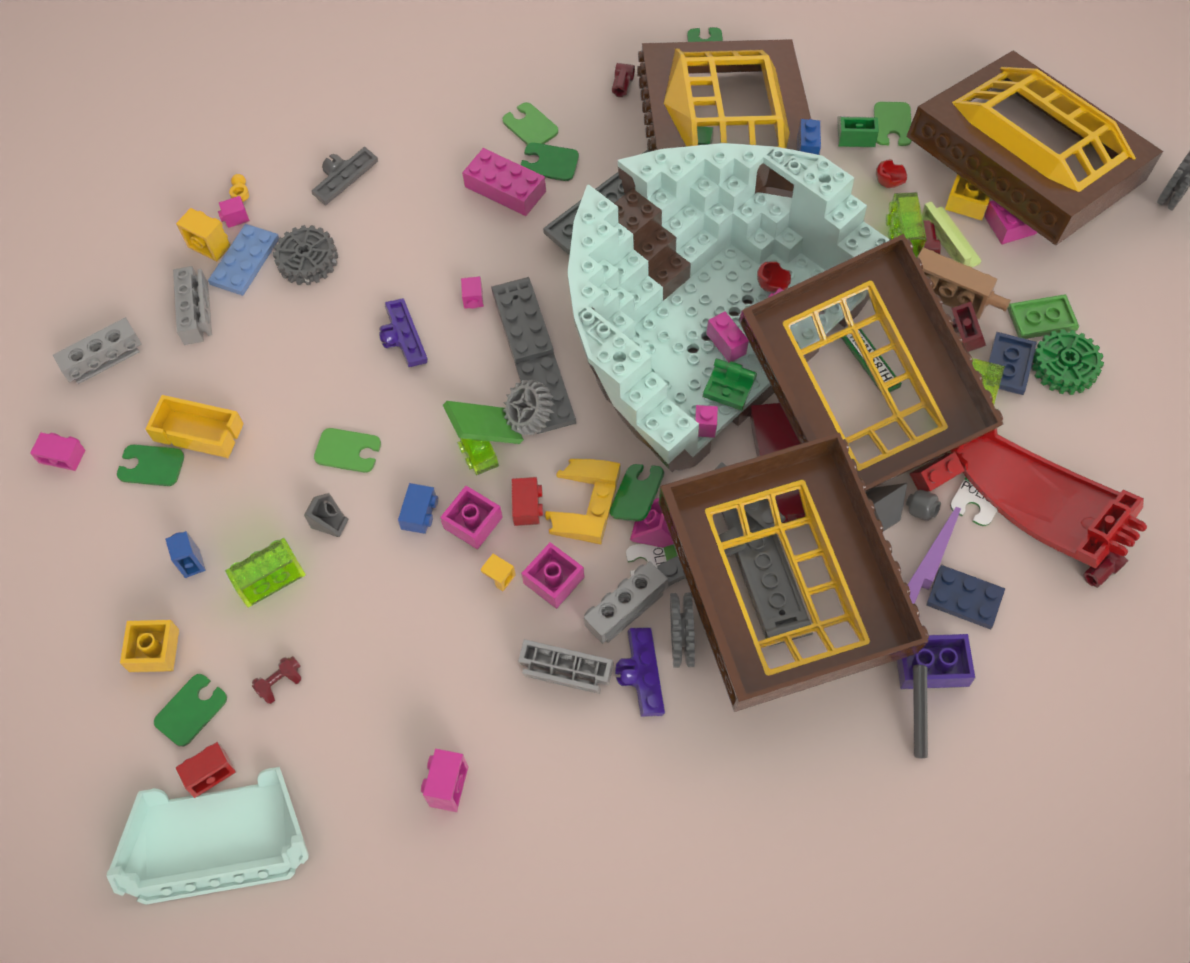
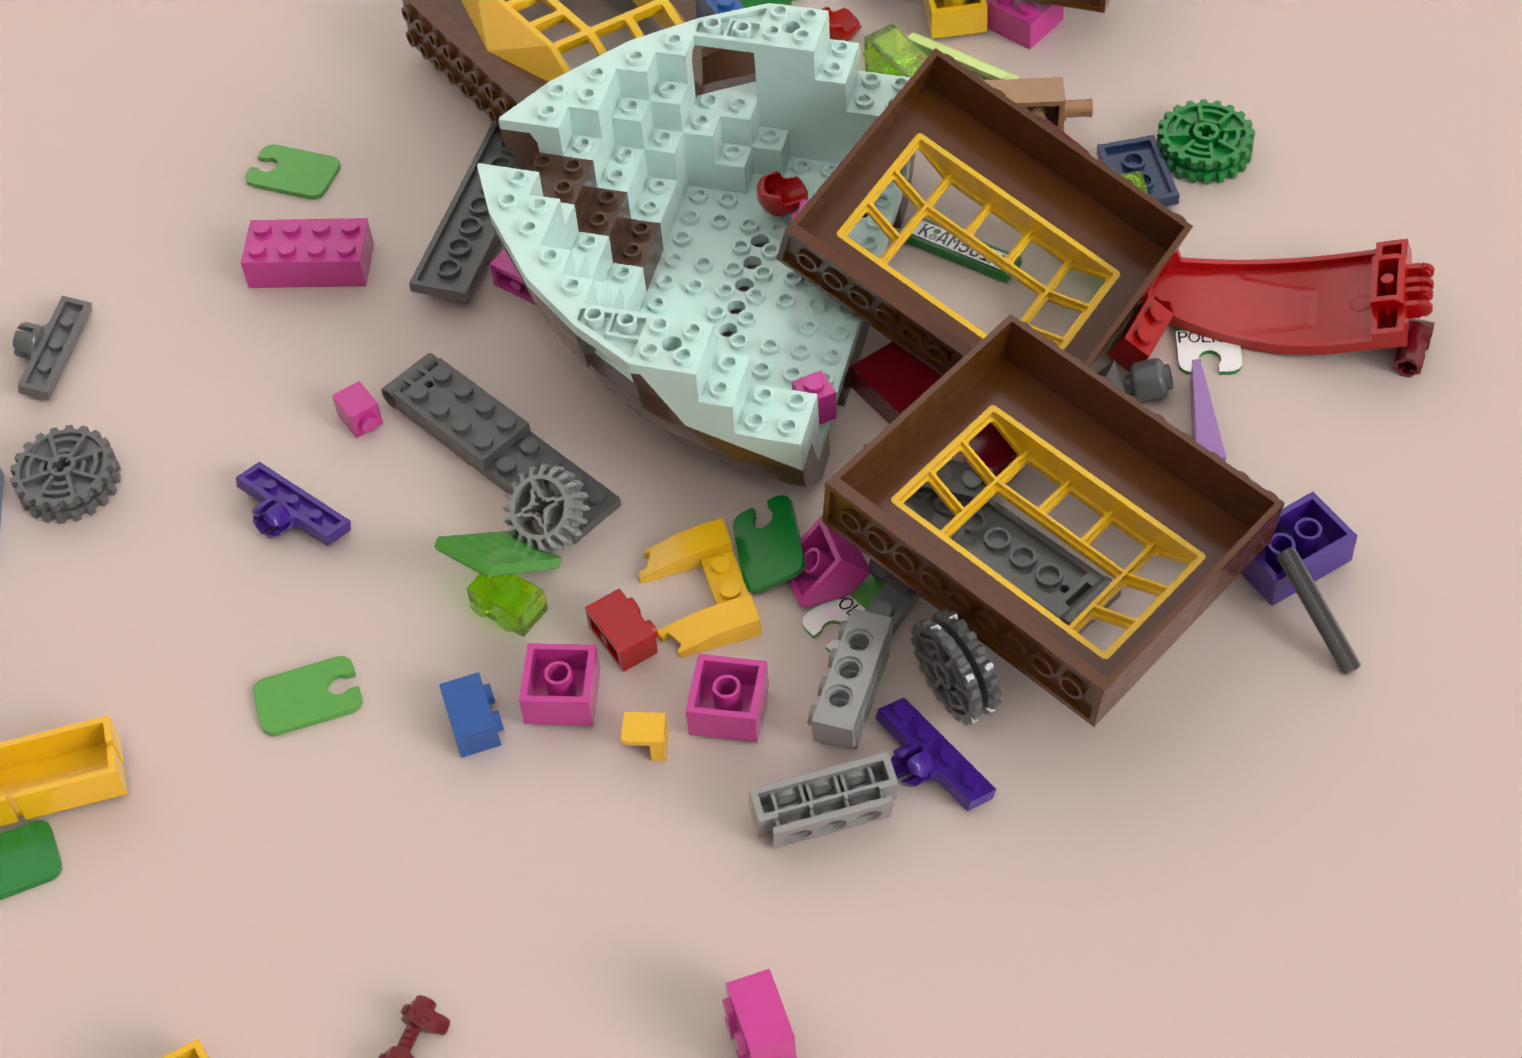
camera: 30 degrees left, 10 degrees down
(185, 554) = (156, 944): blue brick -> none
(265, 572) = (301, 904): clear neon green brick -> none
(325, 515) = (340, 796): dark grey slope -> none
(553, 161) = (362, 197): green piece -> none
(623, 75) = (390, 59): dark red piece -> none
(727, 337) = (770, 289): dark pink brick -> none
(729, 384) = (813, 341): green plate -> none
(966, 597) = (1280, 458): dark blue plate -> none
(1042, 316) = (1138, 106): bright green tile -> none

